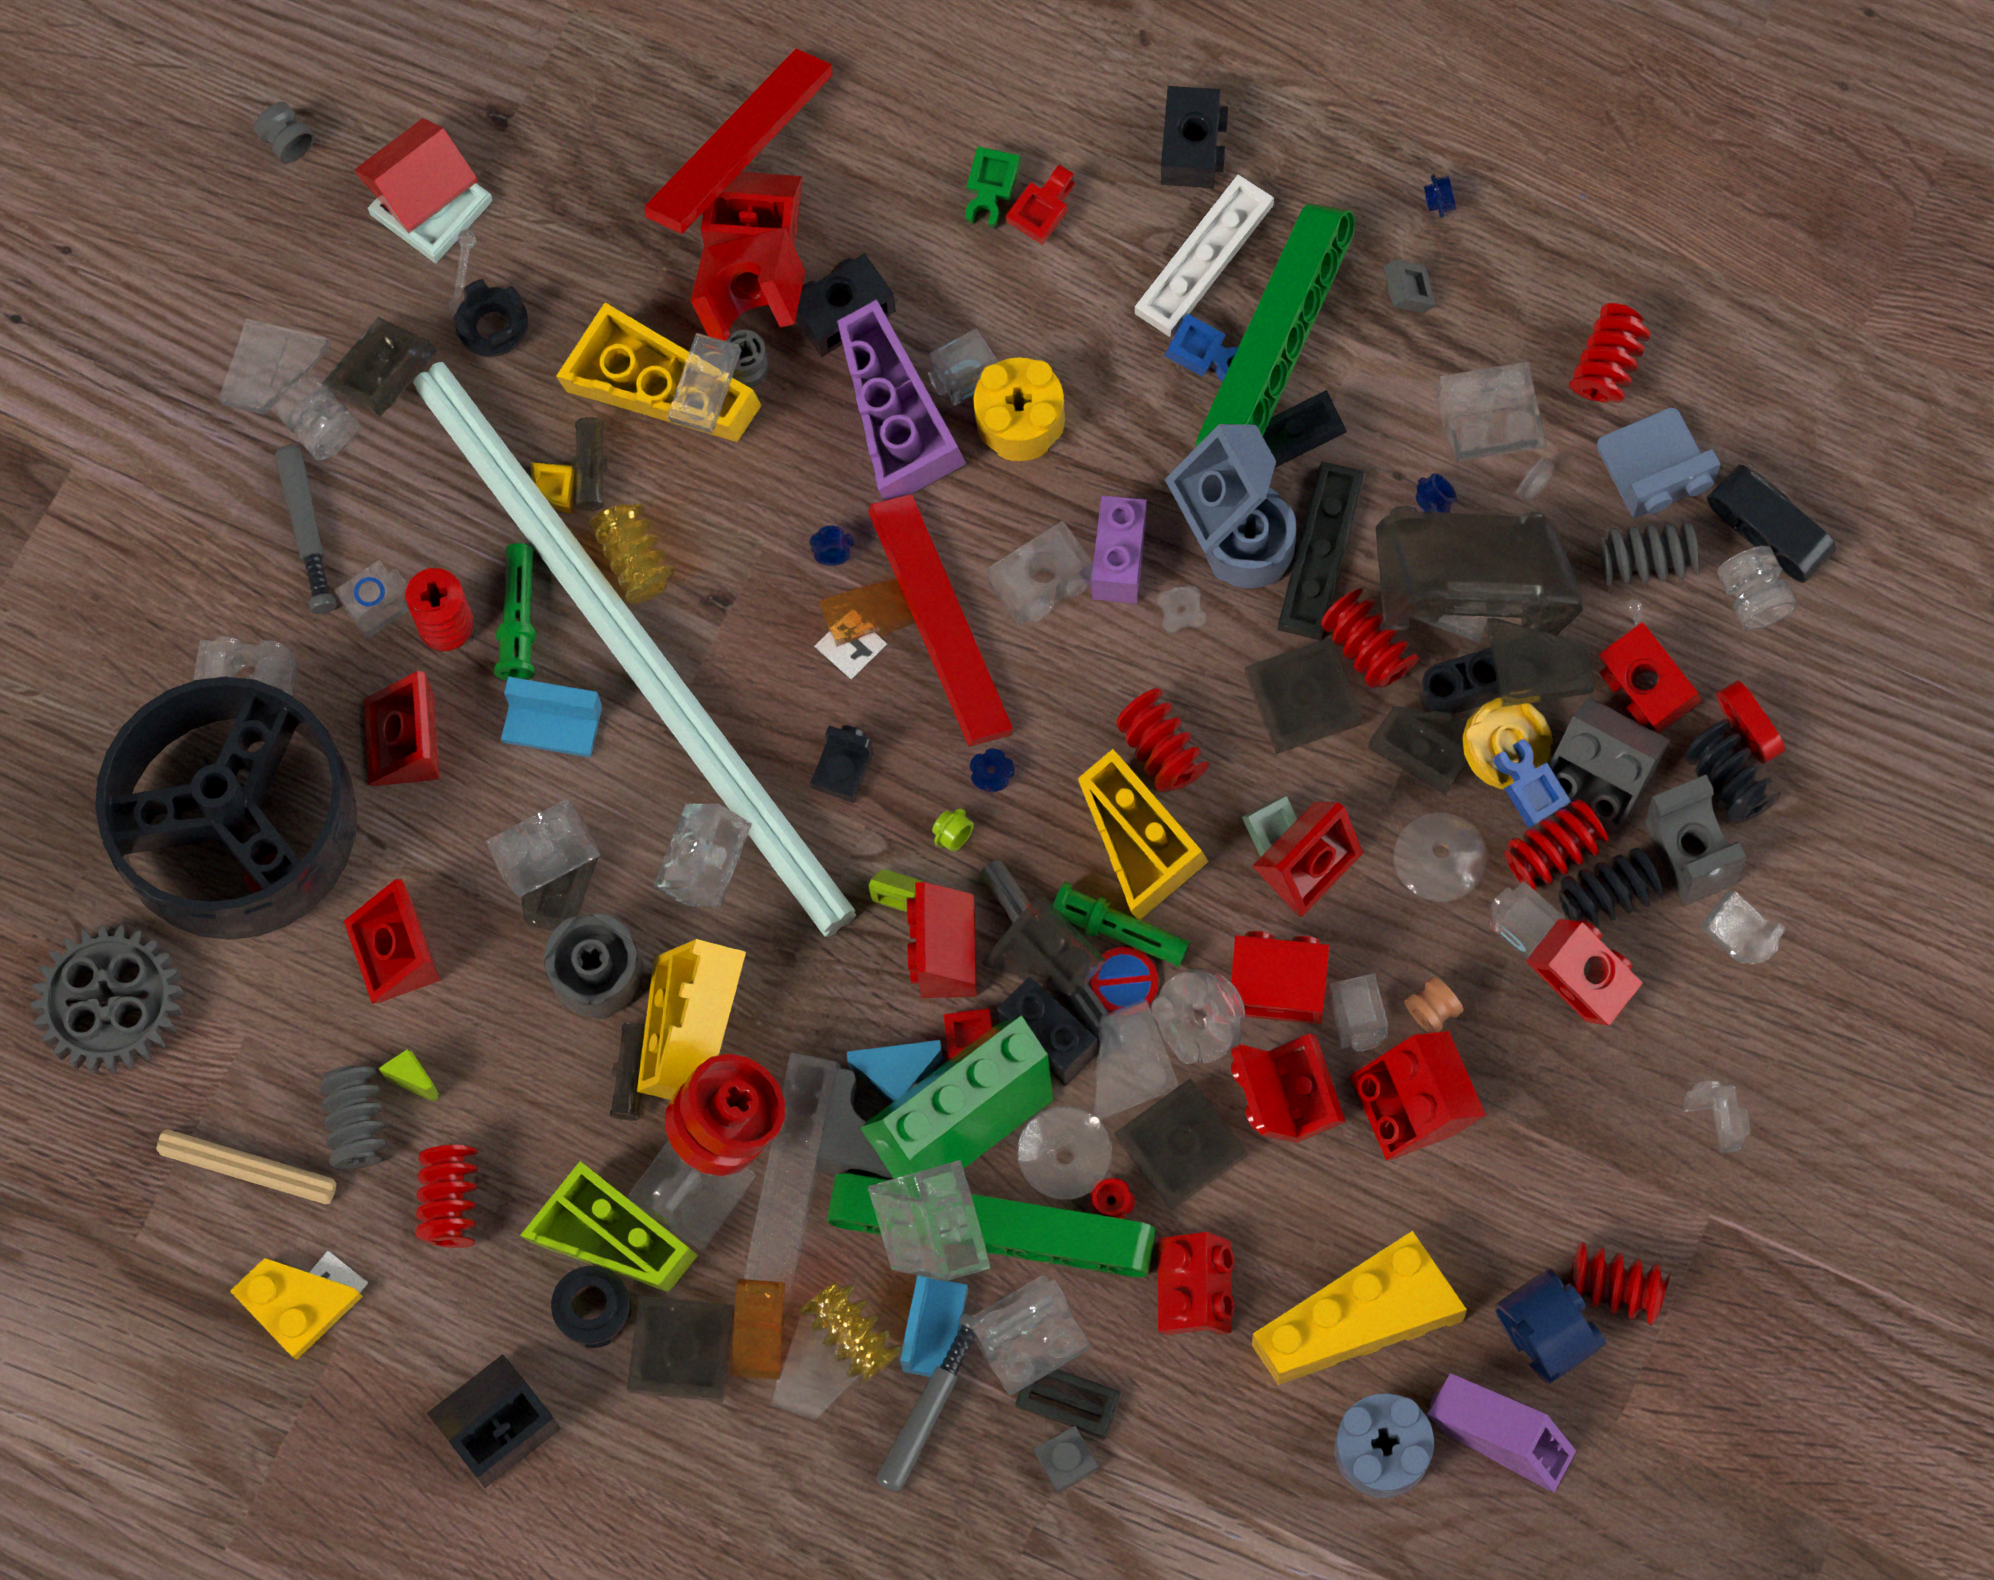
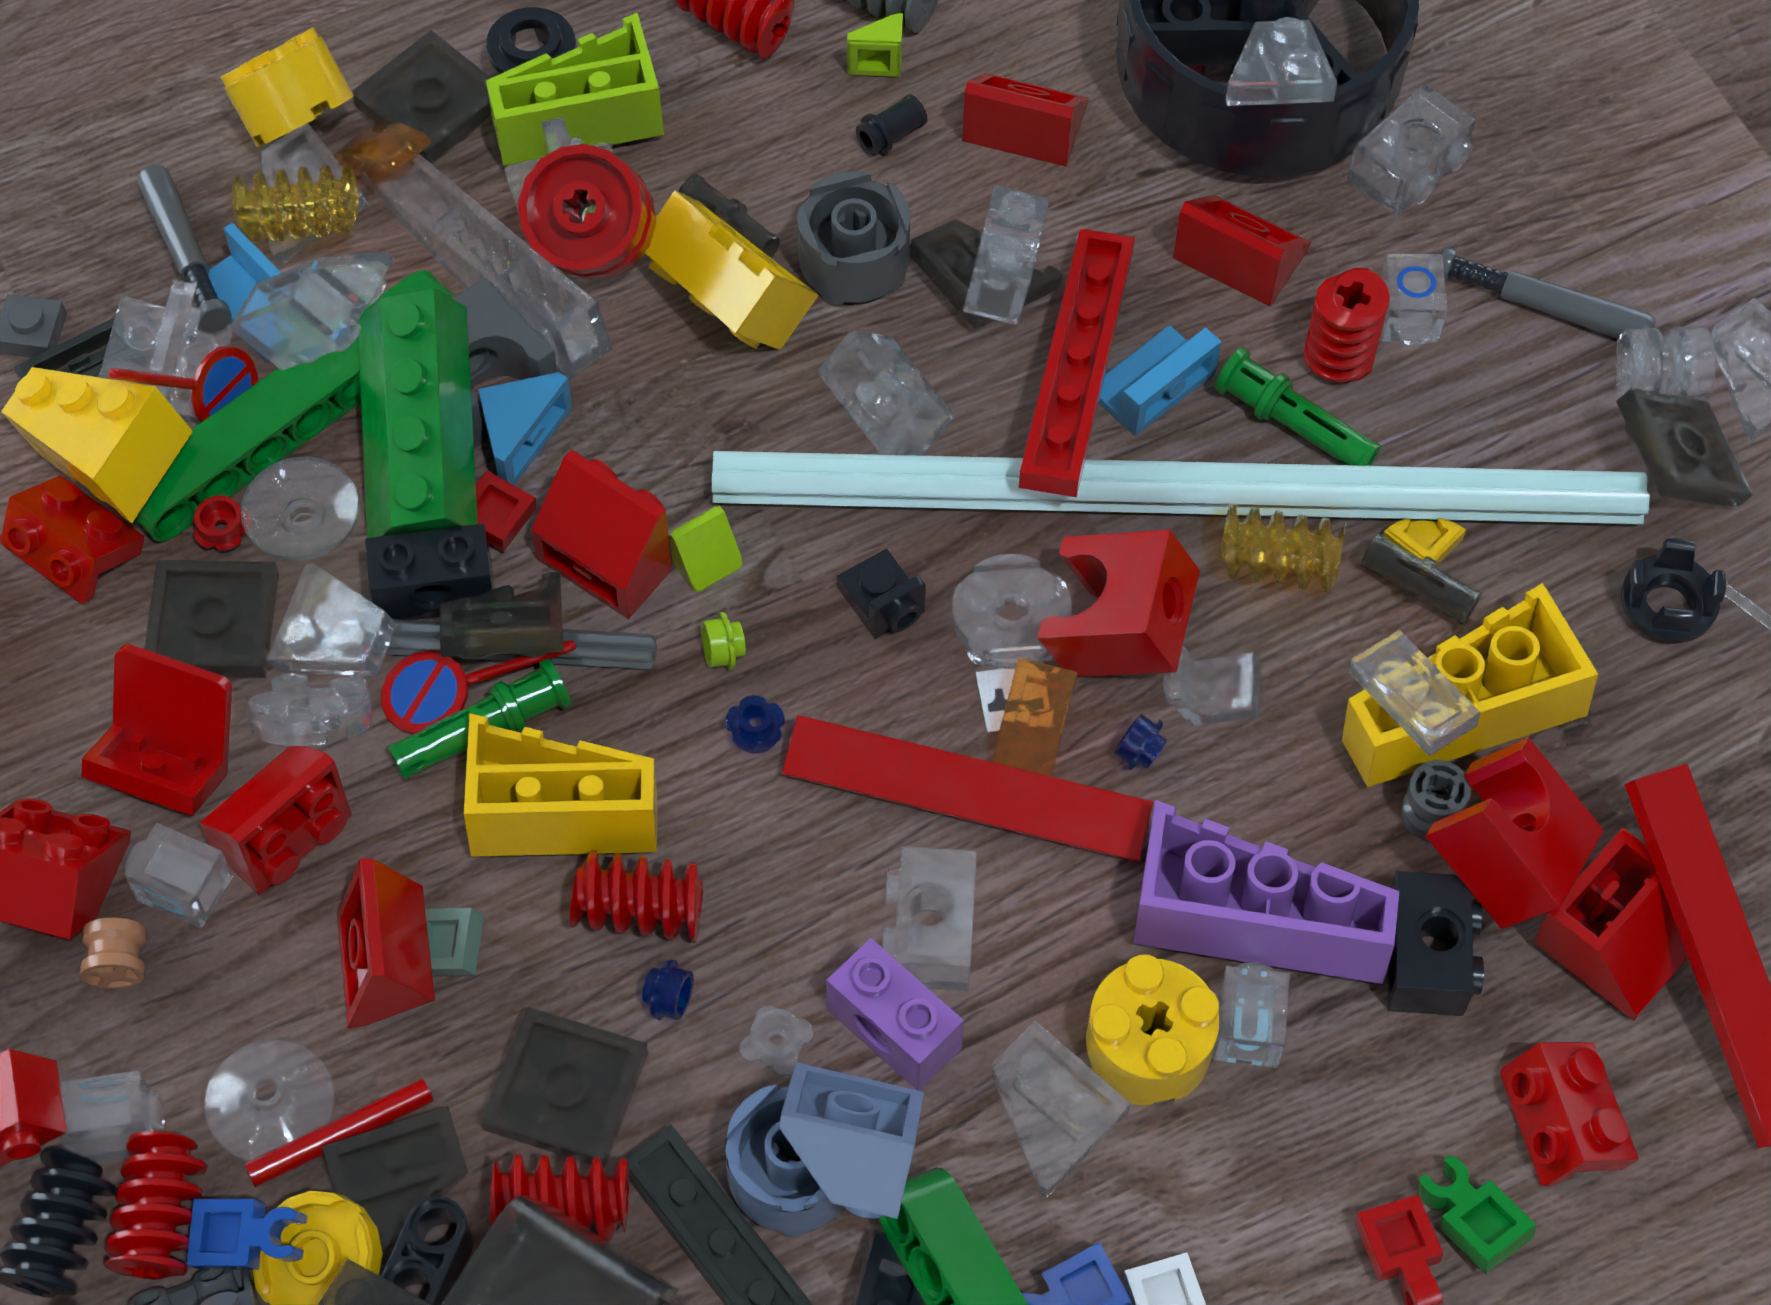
camera: 120 degrees right, 10 degrees down
(287, 739) = (1281, 66): none -> clear wing
(470, 1024) = (881, 130): none -> black pin
(586, 756) = (1077, 364): none -> red plate
(749, 582) = (1141, 608): none -> red piece
(762, 526) = (1215, 688): none -> clear bracket
(763, 1421) = (286, 87): none -> yellow brick
(801, 654) = (983, 594): none -> clear plate
(890, 176) = (1567, 1111): none -> red bracket
(1041, 1268) = (217, 381): none -> piece
(1102, 434) = (1054, 1104): none -> clear wing
(1126, 1301) = (100, 432): none -> yellow wedge
(1201, 686) = (668, 991): none -> clear blue plate
(1428, 798) = (360, 1121): none -> red bar

